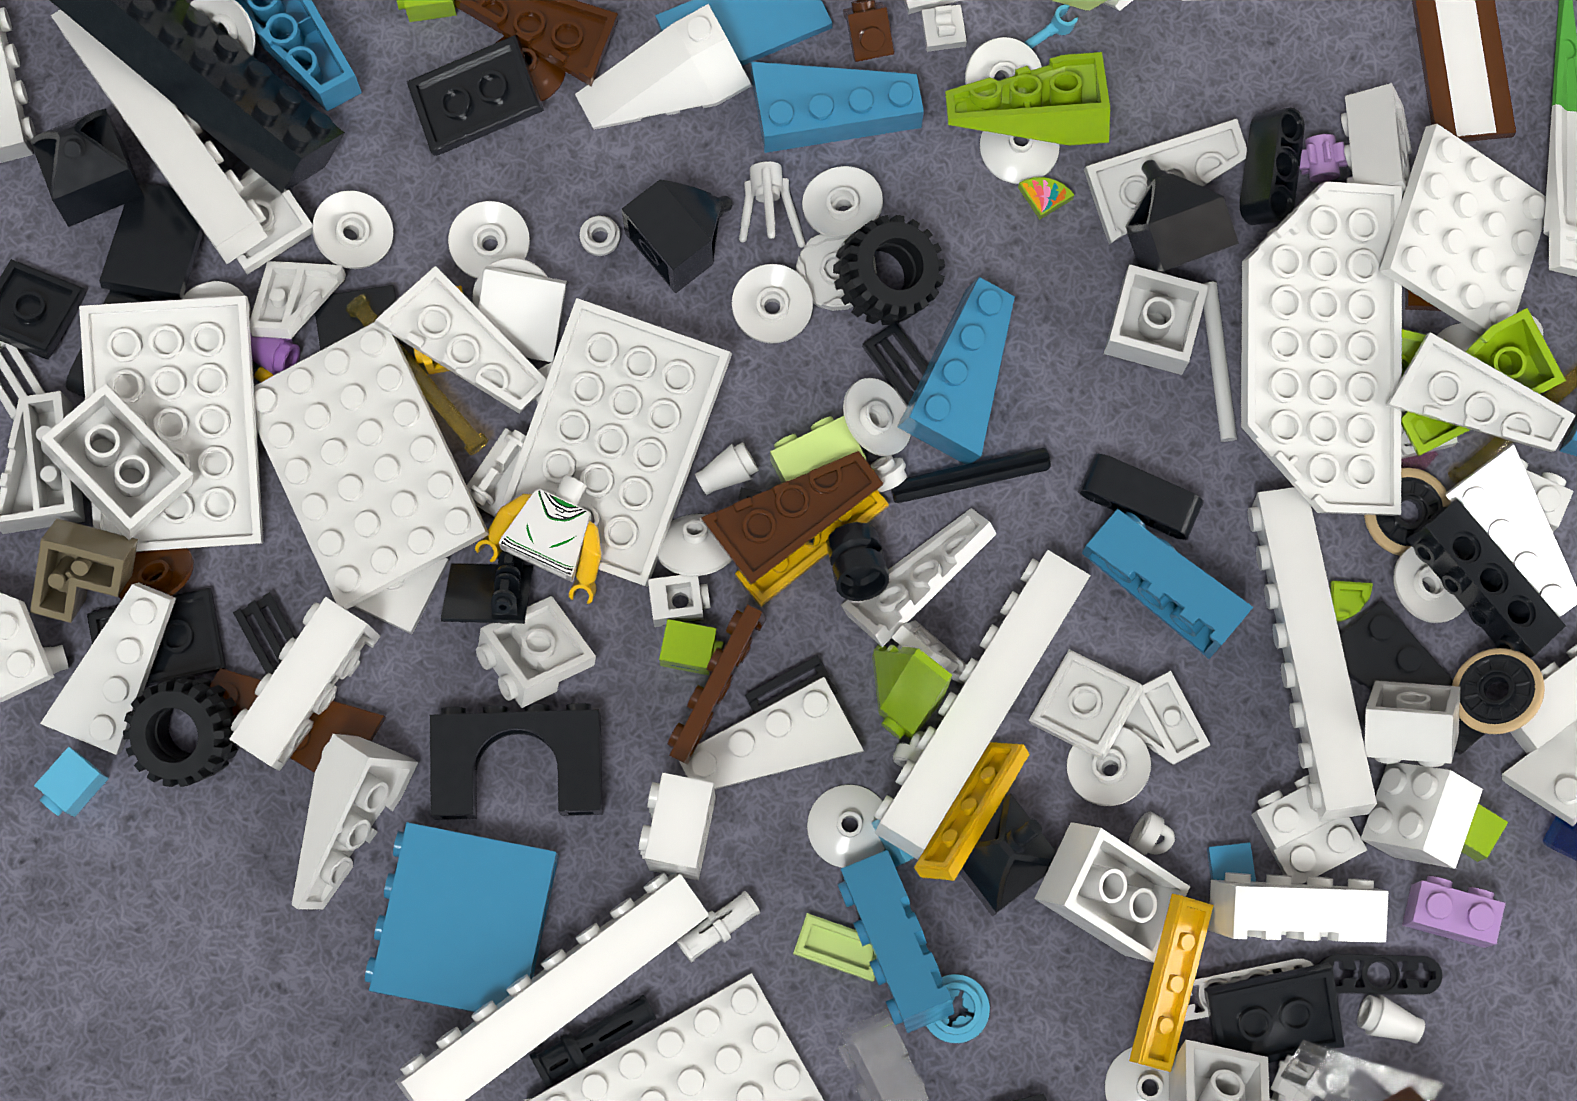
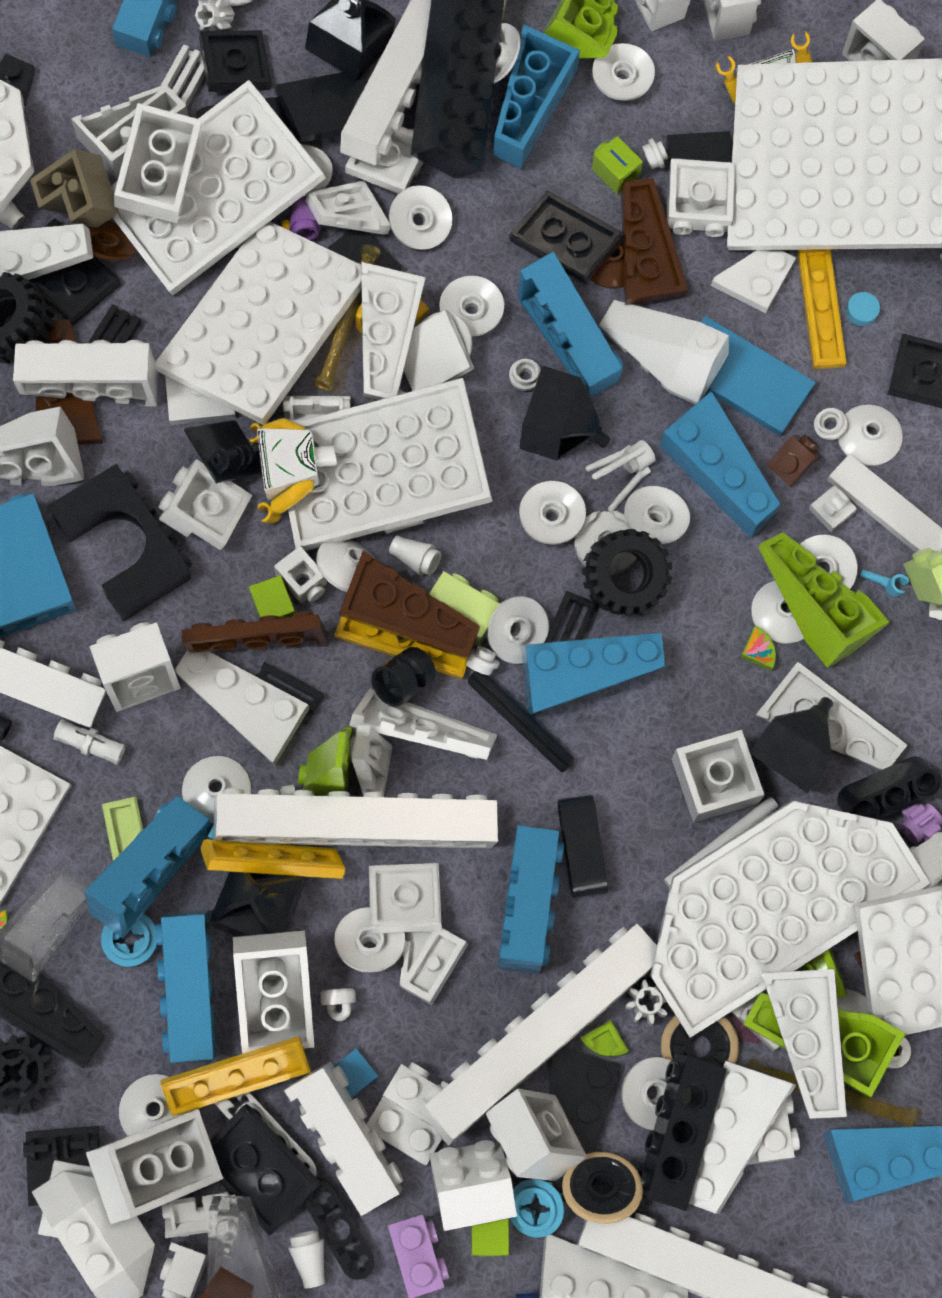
camera: 55 degrees right, 5 degrees down
(579, 157) = (567, 324): none -> dark azure wedge
(1045, 974) = (186, 986): none -> dark azure wedge
(1348, 532) = (641, 1010): none -> white gear
(1491, 761) = (549, 1219): none -> medium azure gear

